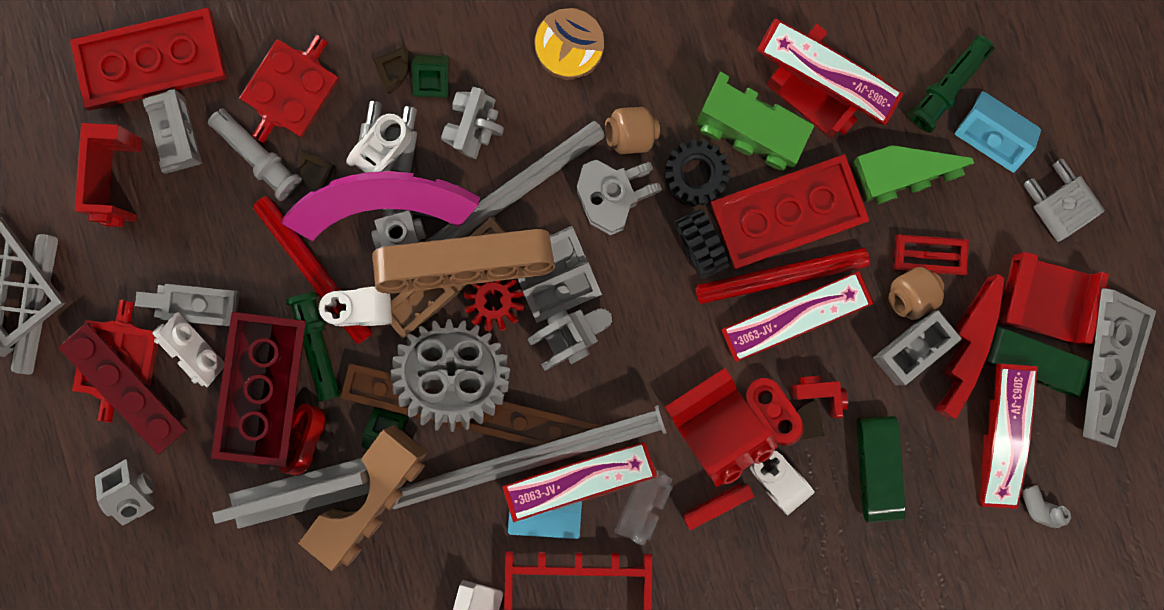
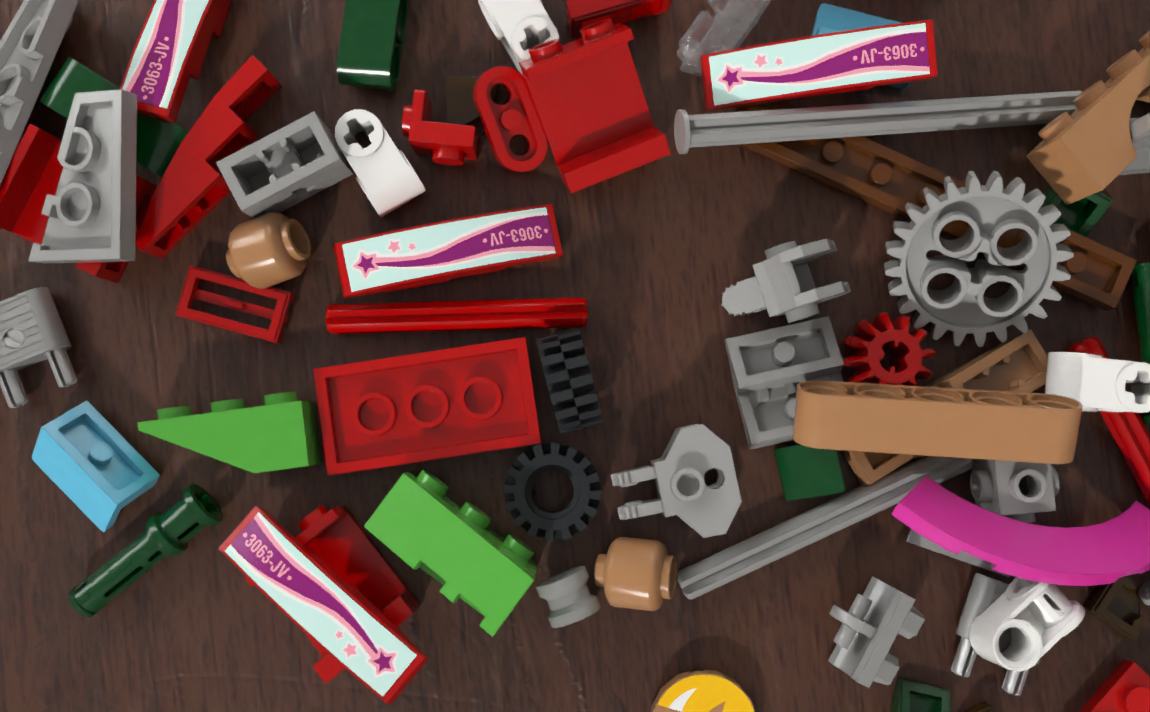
camera: 170 degrees left, 0 degrees up
(531, 216) = (808, 472): none -> dark green slope
(673, 107) = (568, 597): none -> light grey wheel
(852, 360) = (380, 167): none -> white piece
(1035, 305) = (96, 195): none -> light grey wing

